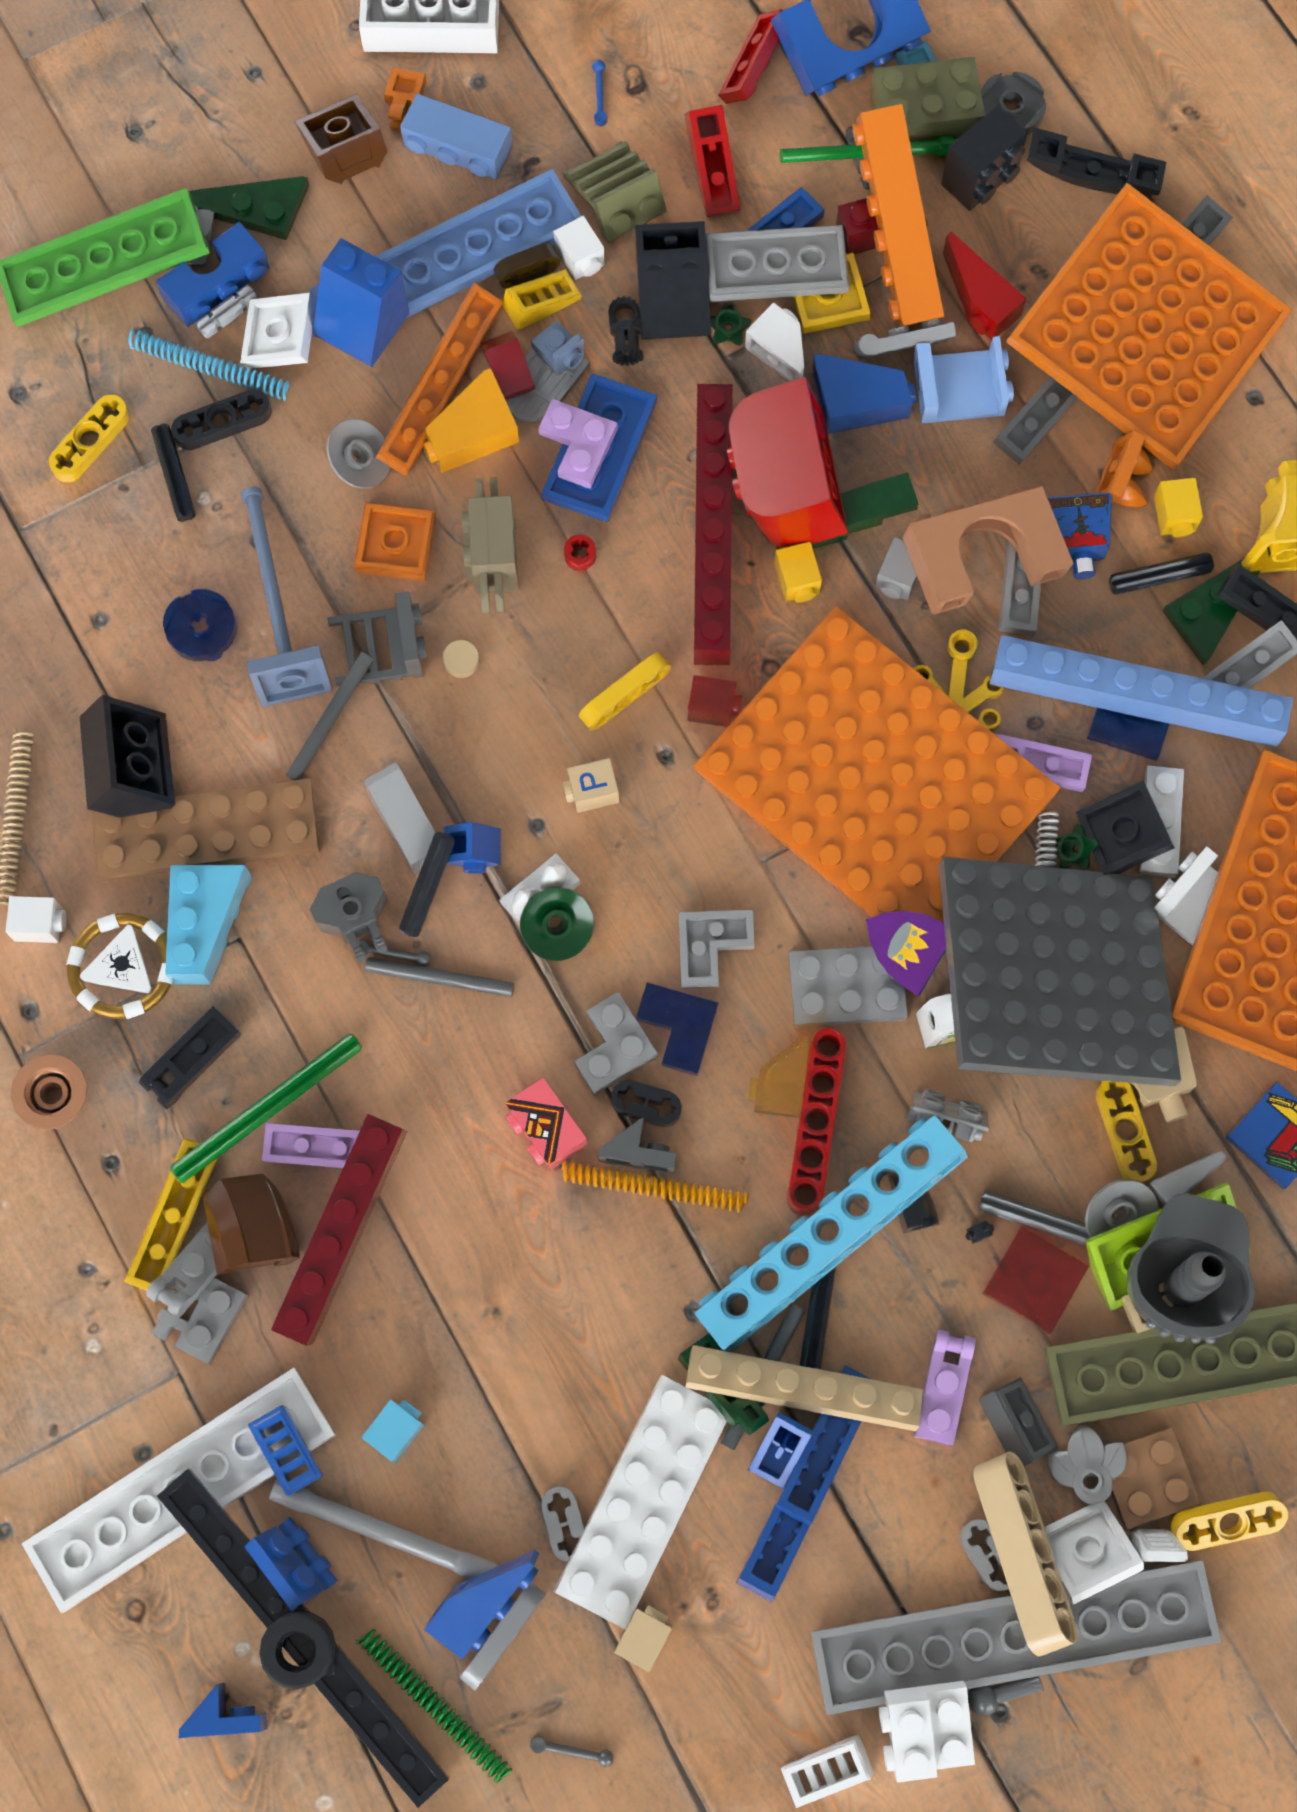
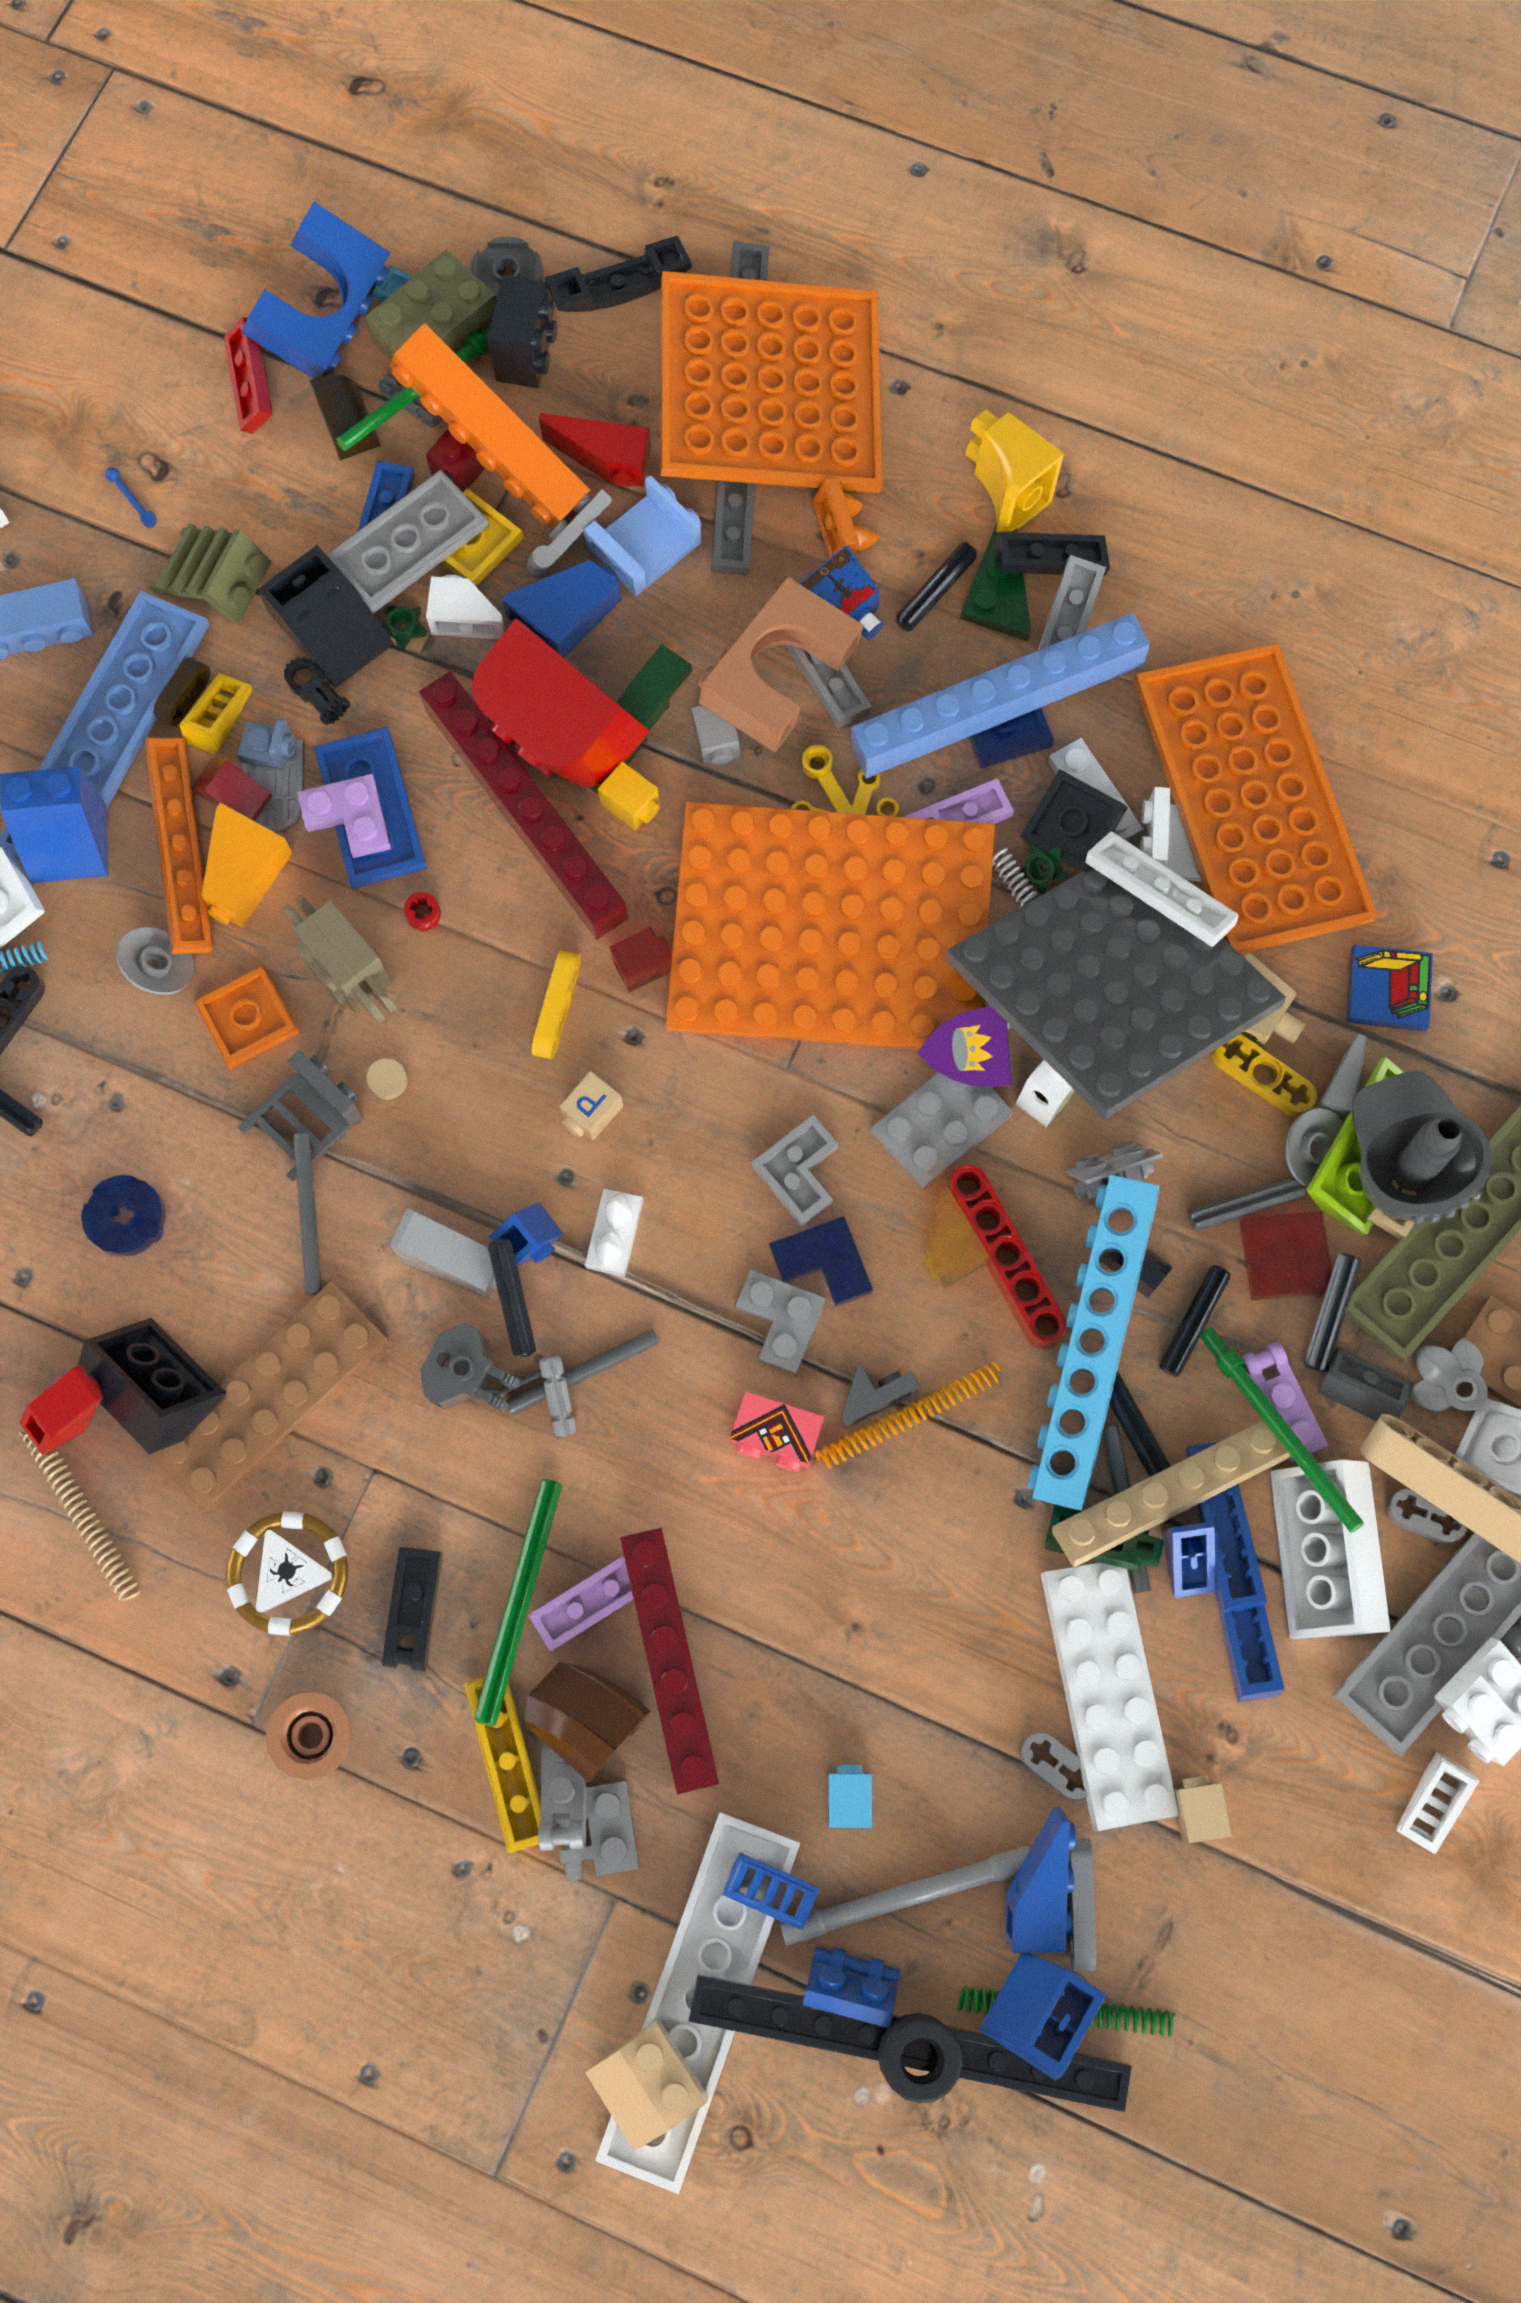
camera: 35 degrees left, 0 degrees up
(35, 919) = (173, 1590): white brick -> none
(52, 734) = (62, 1410): none -> red slope
(96, 1518) = (647, 2085): none -> tan slope
(199, 918) = (327, 1476): medium azure wedge -> none
(211, 1718) = (886, 2181): blue slope -> none
(290, 673) = (241, 1200): sand blue tile -> none
(406, 980) = (557, 1396): none -> light grey axle
(410, 1689) = (1042, 2013): none -> blue slope
(539, 1744) = (1182, 1973): dark grey hinge -> none
(567, 938) = (669, 1249): dark green dish -> none
(579, 248) = (218, 644): white brick -> none
(648, 1094) = (845, 1339): black beam -> none
(712, 159) = (279, 488): red slope -> none
(805, 127) = (342, 409): none -> dark brown brick
(892, 1523) = (1328, 1573): none -> white slope
(925, 1276) = (1195, 1320): none -> black axle
(925, 1331) = (1232, 1366): none -> green bar
(979, 1232) = (1211, 1249): black piece -> none
(1035, 1347) = (1332, 1312): none -> black axle
(1149, 928) = (1162, 888): none -> white plate
(1178, 507) = (910, 520): yellow brick -> none

